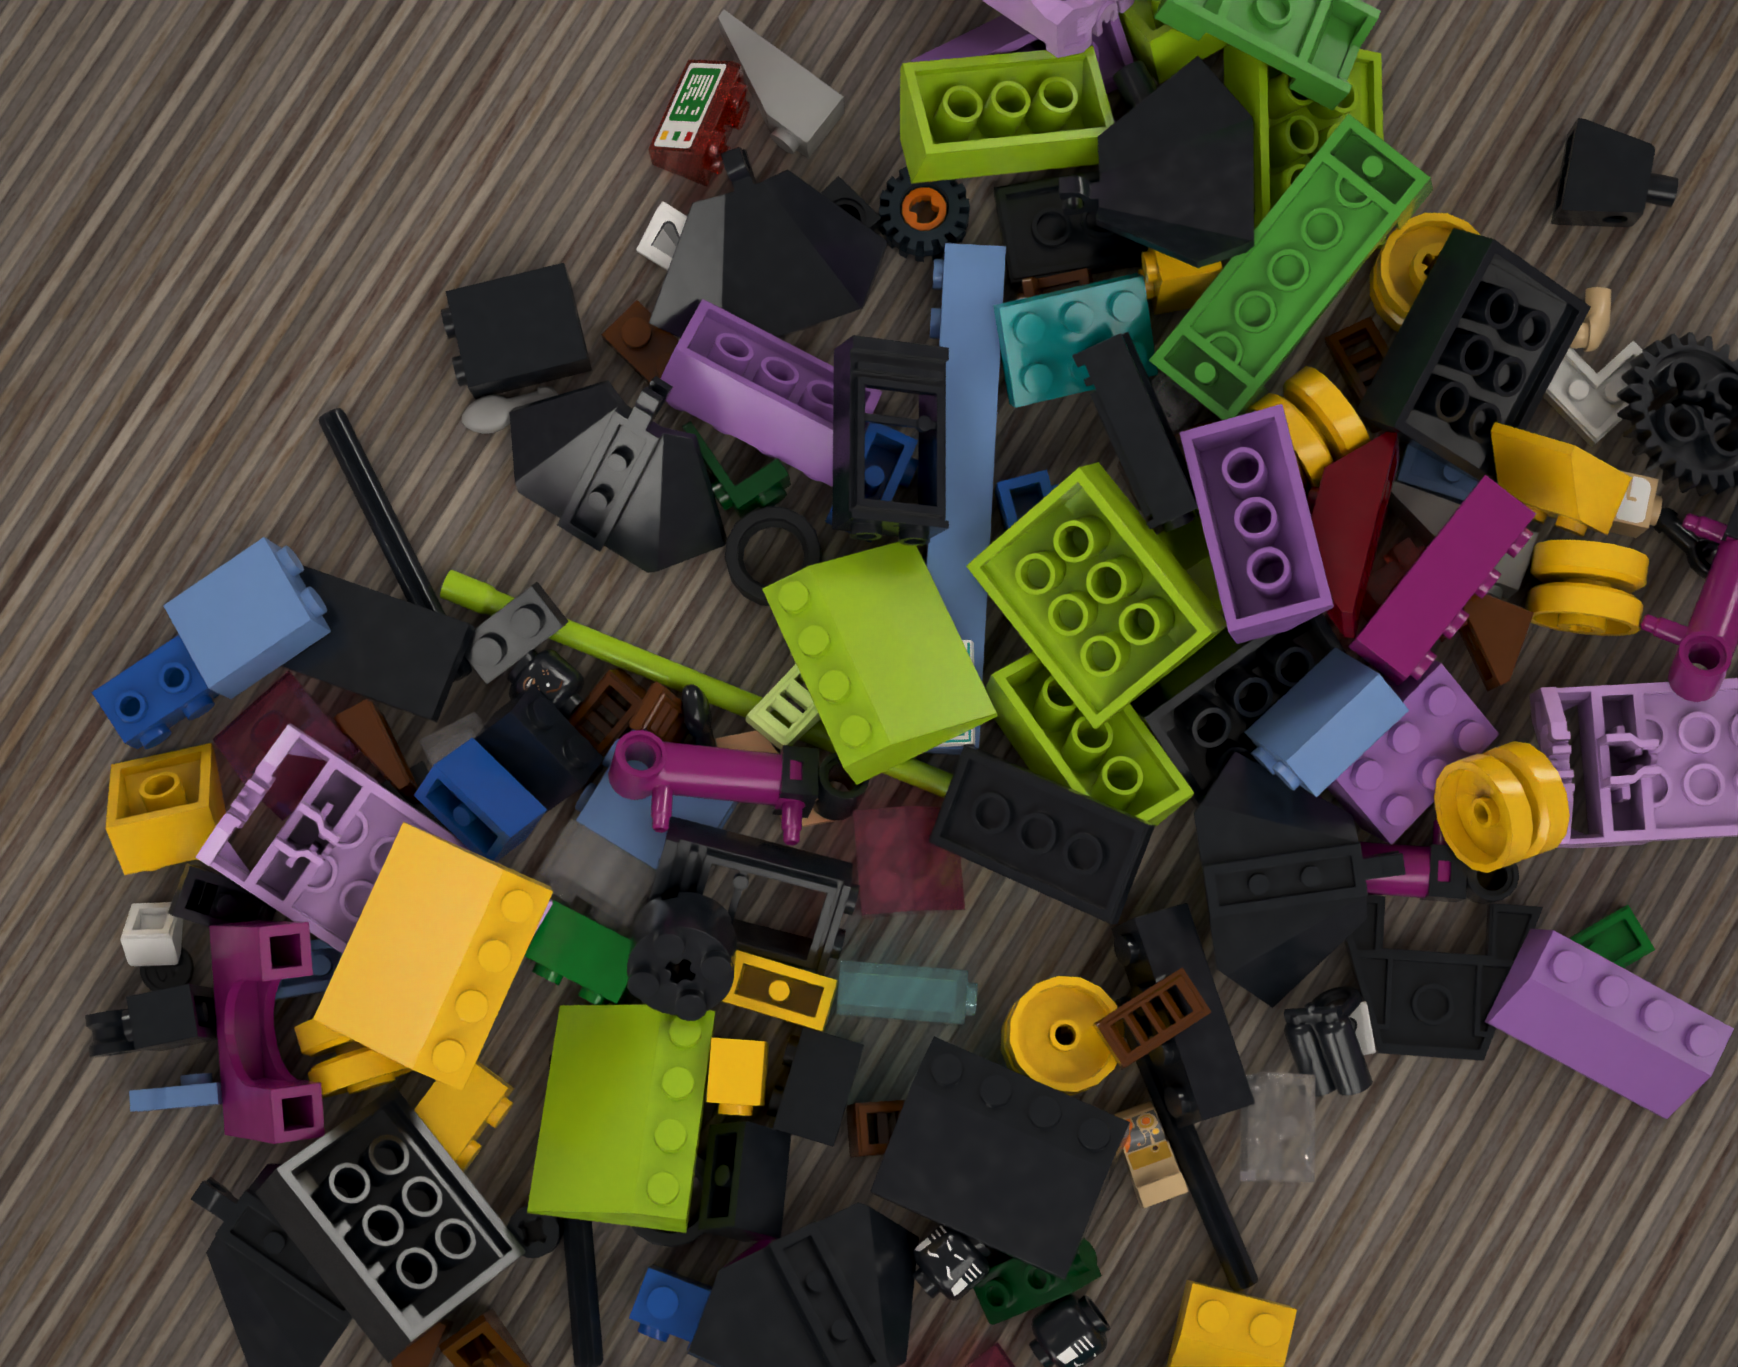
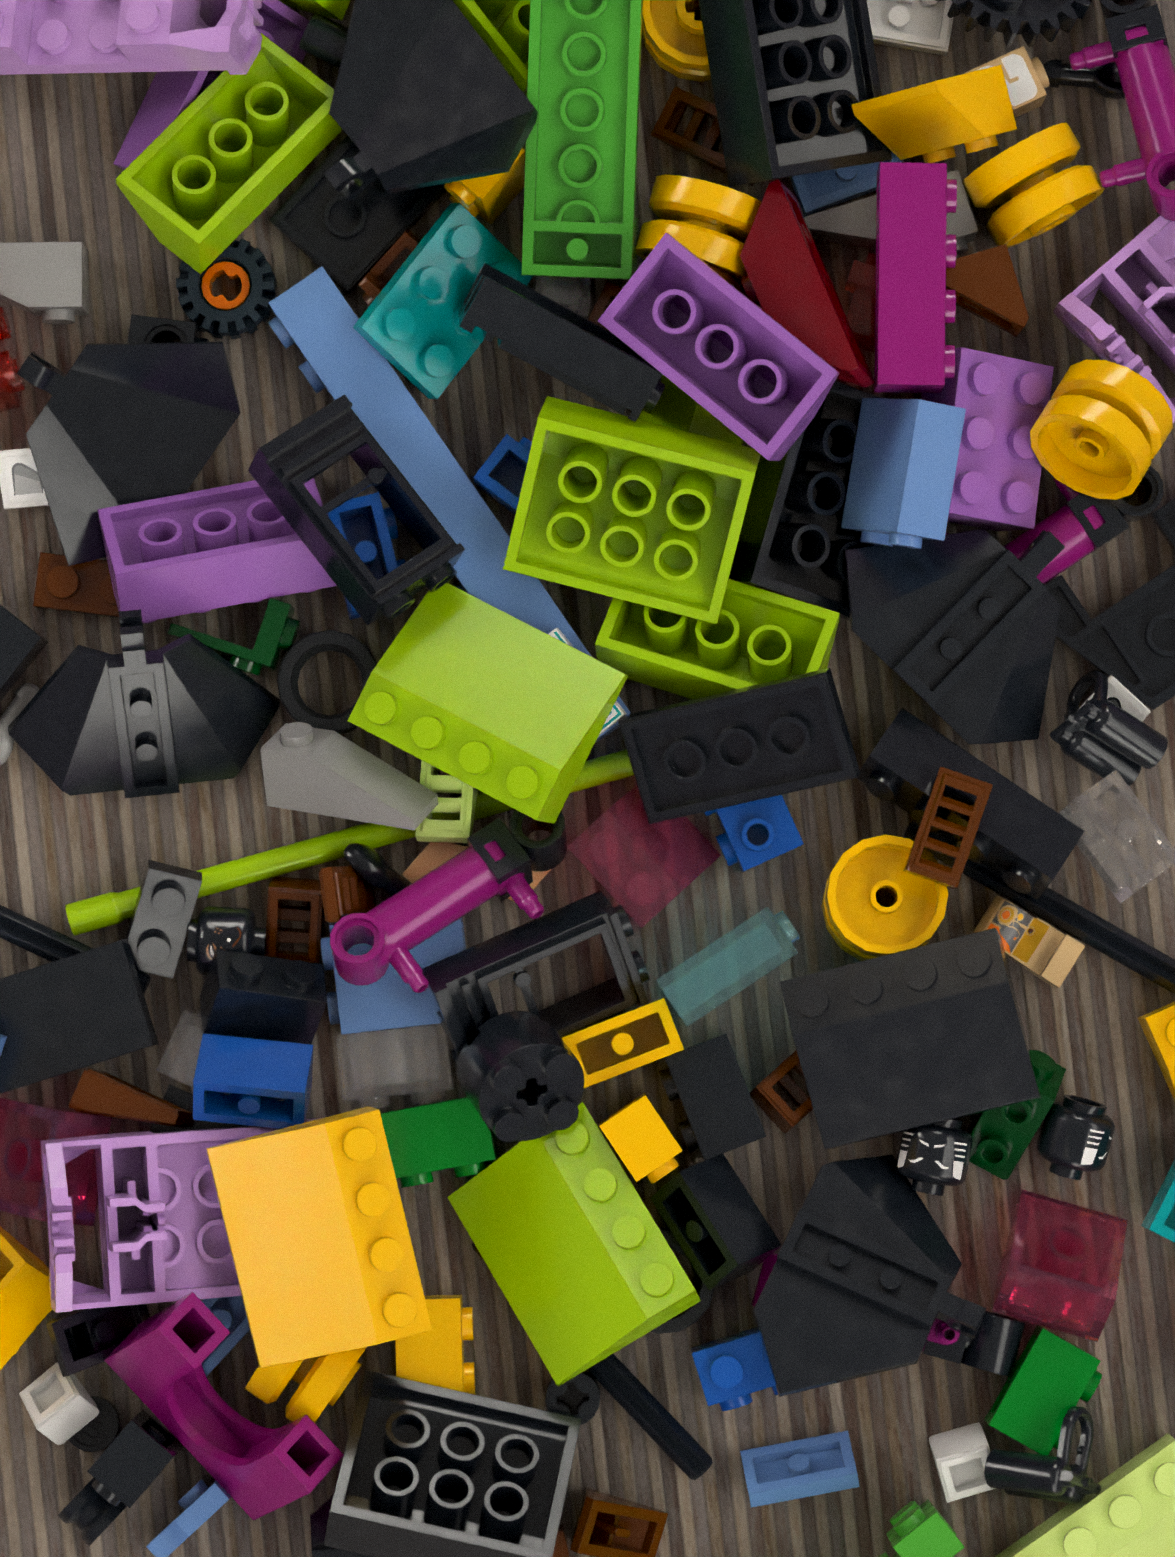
camera: 35 degrees left, 5 degrees up
(722, 627) = (336, 778): none -> light grey slope
(1005, 911) = (756, 832): none -> blue brick

